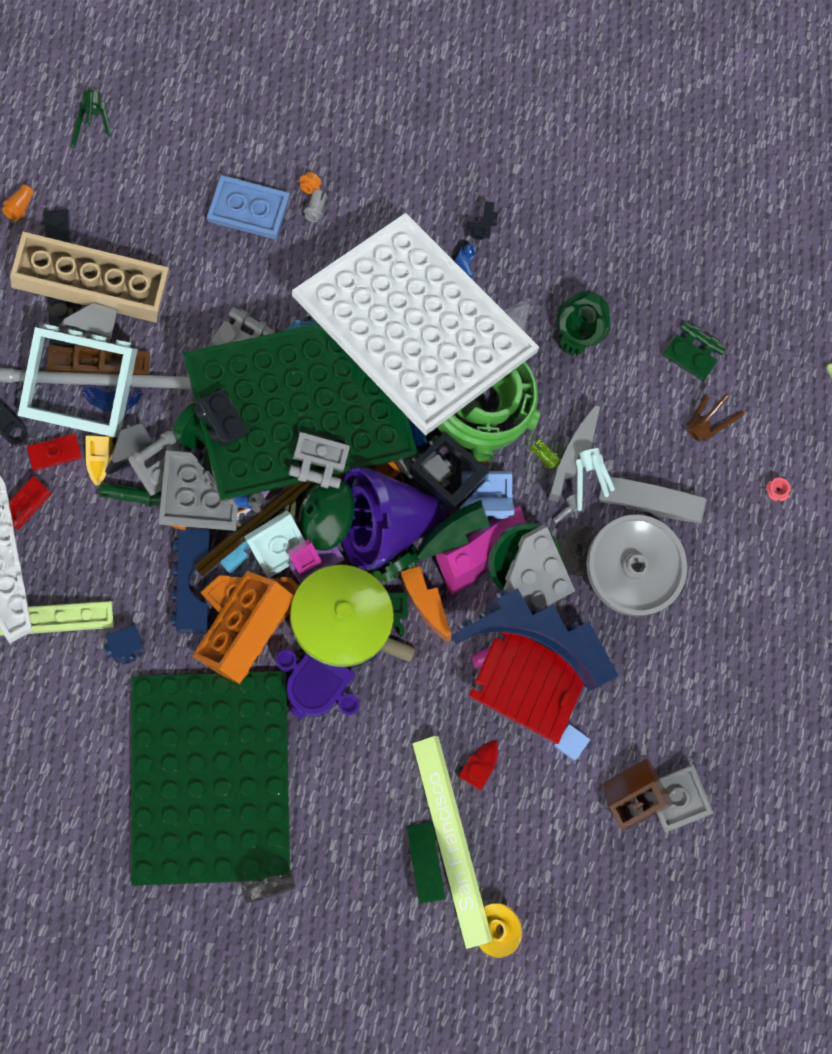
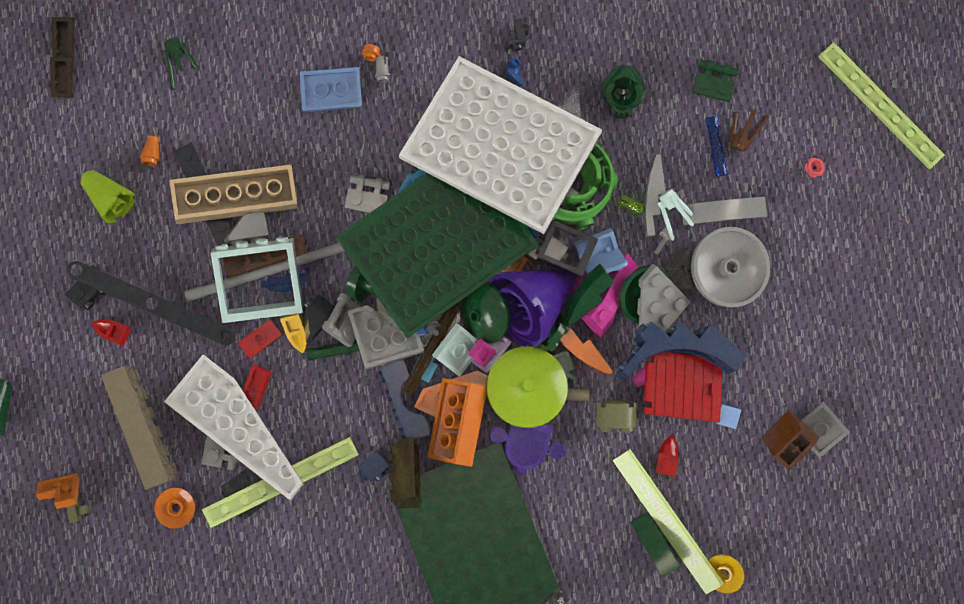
camera: 20 degrees left, 10 degrees up
(158, 664) = (405, 474): none -> dark brown slope
(221, 417) = (385, 276): black bracket -> none
(321, 453) = (468, 273): light grey plate -> none
(436, 687) = (616, 415): none -> olive brick
(669, 434) = (718, 154): none -> clear blue pin

